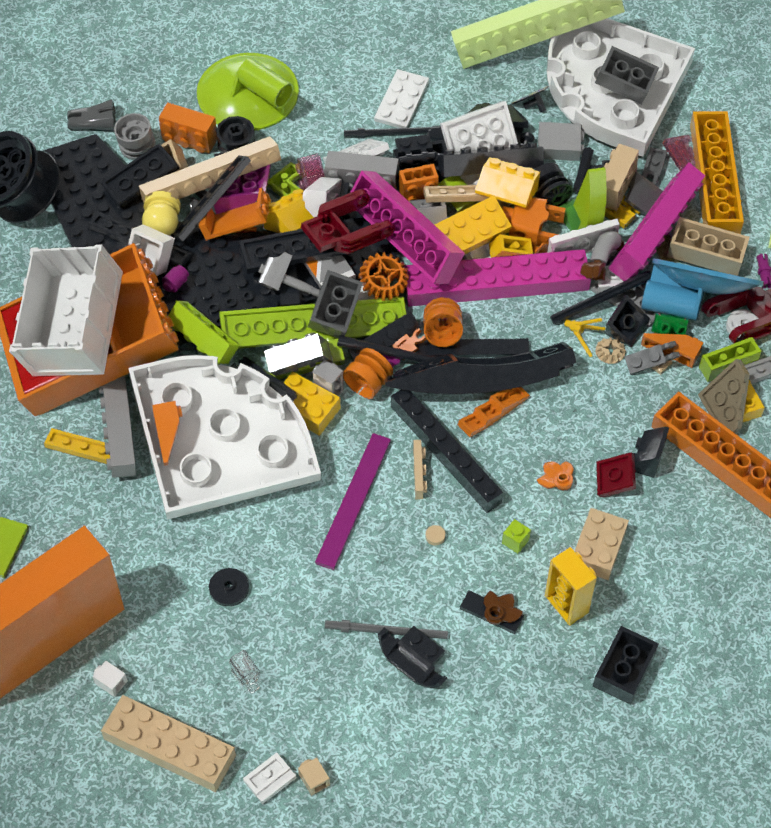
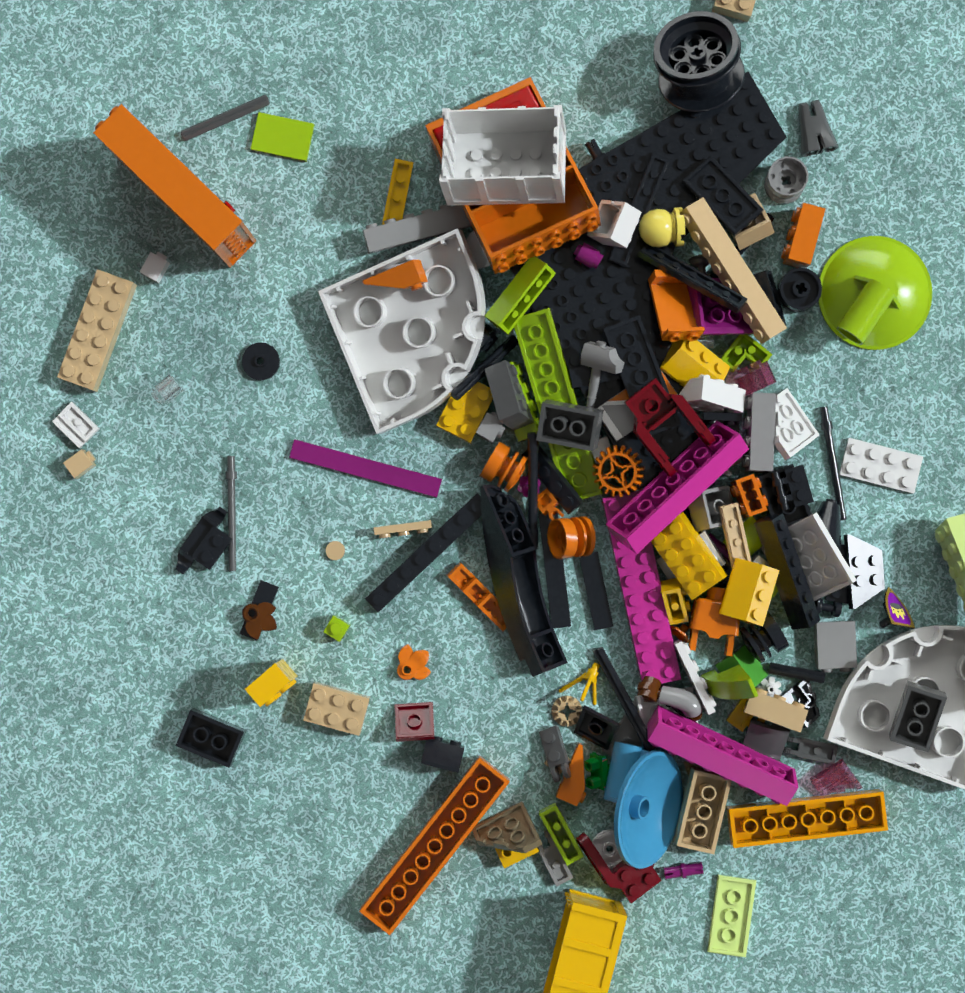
camera: 85 degrees right, 30 degrees up
(497, 316) = (596, 591): none -> black tile

